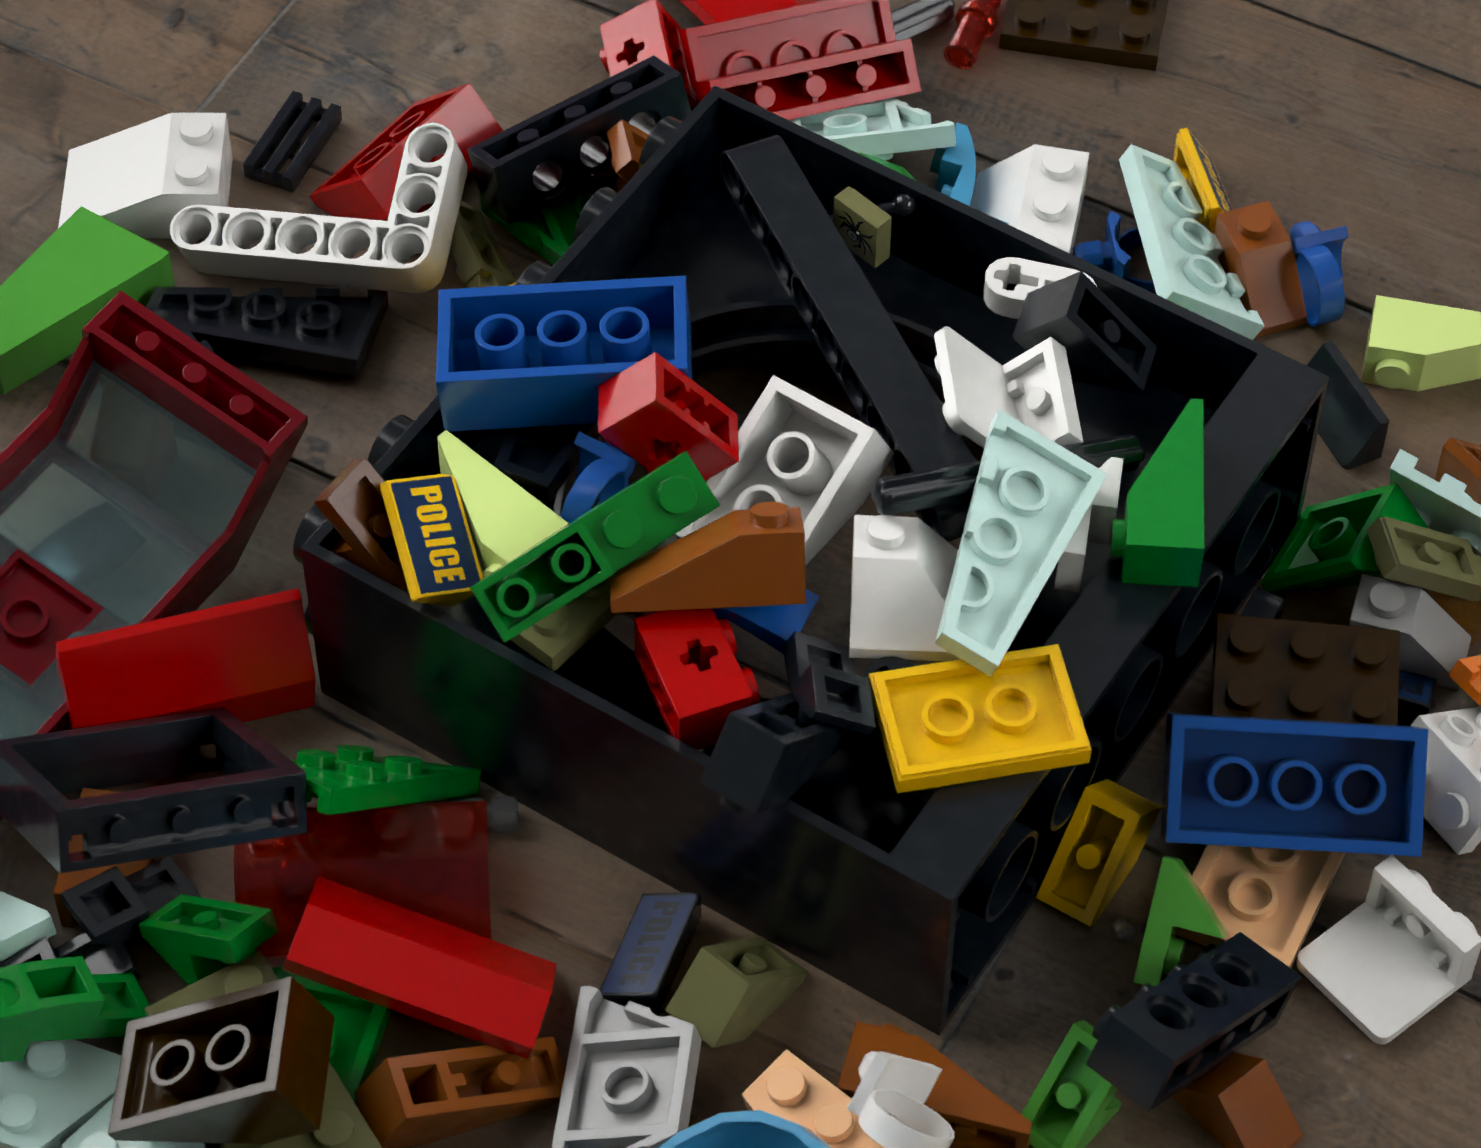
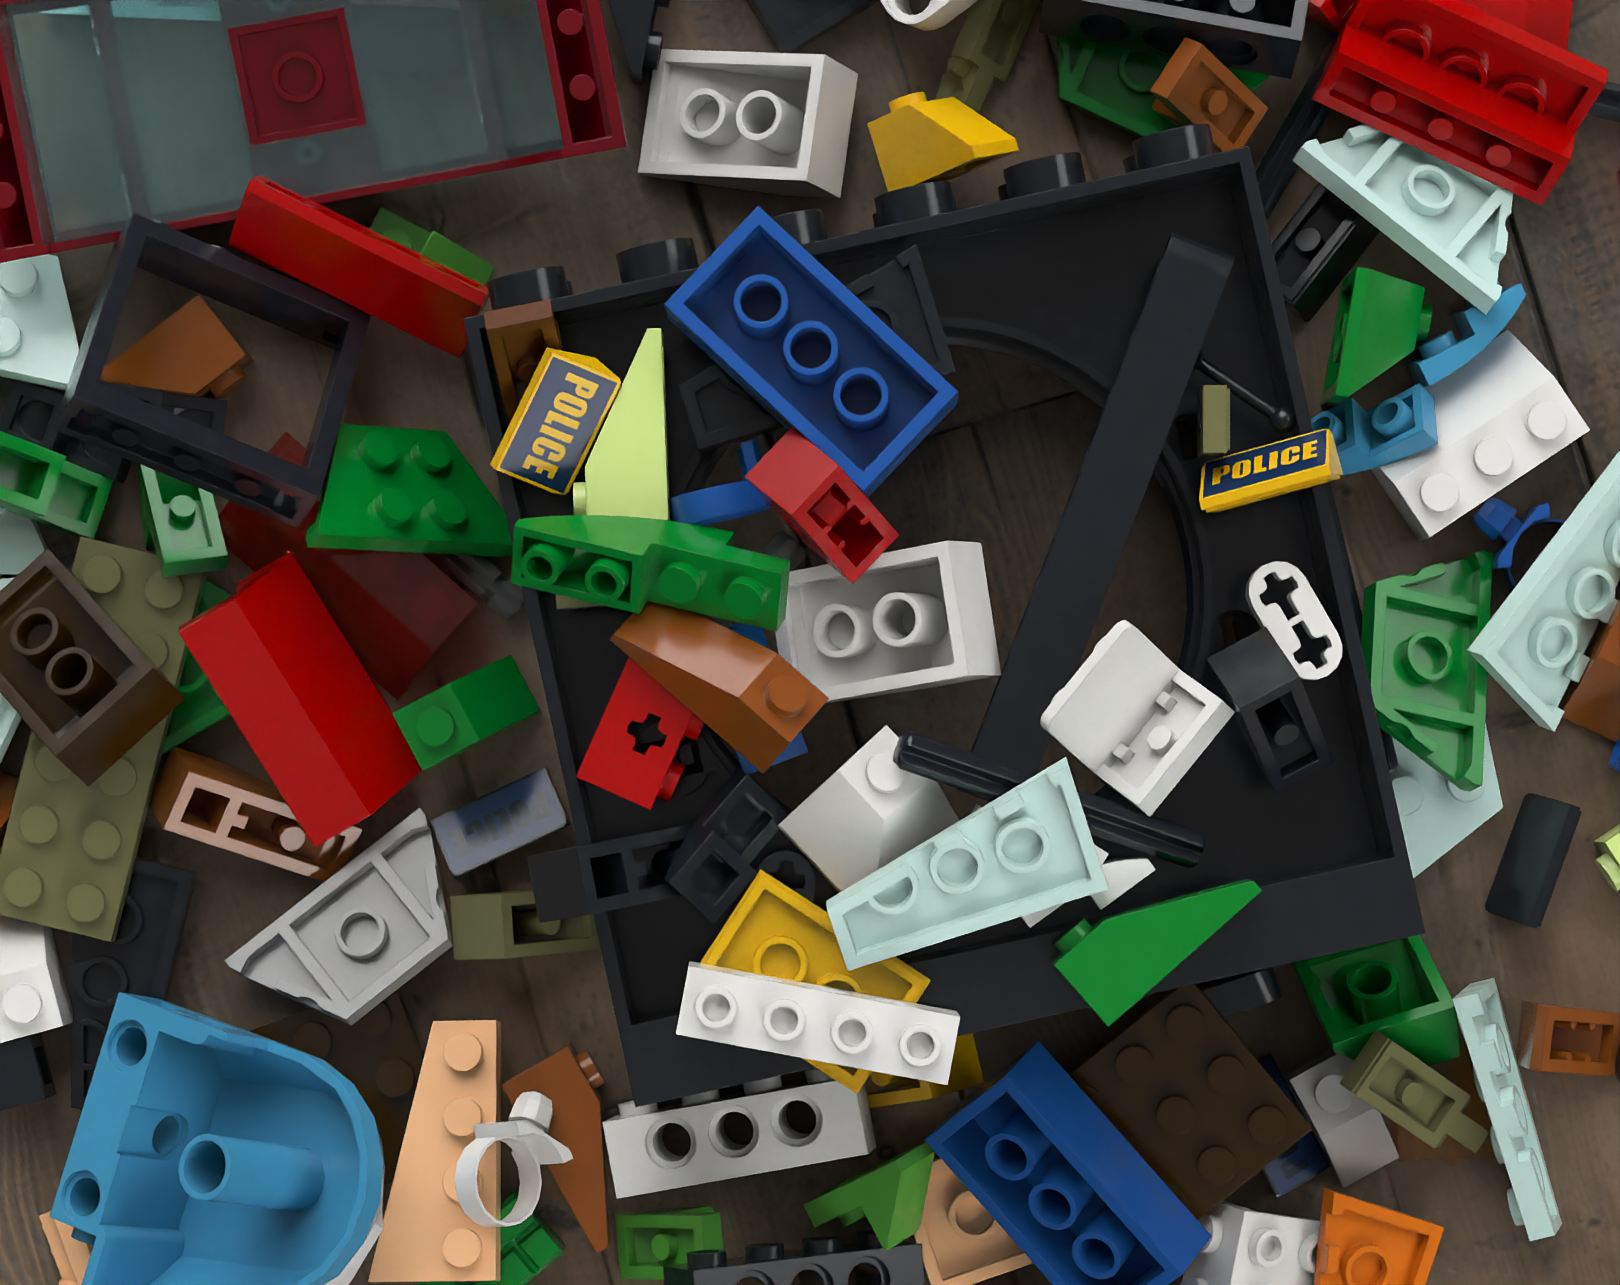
camera: 45 degrees right, 35 degrees up
(356, 399) = (749, 121): none -> white slope
(547, 904) = (466, 712): none -> green slope
(932, 222) = (1269, 471): none -> slope
(1013, 704) = (818, 1023): none -> white brick
(1076, 890) = (645, 1166): none -> white brick

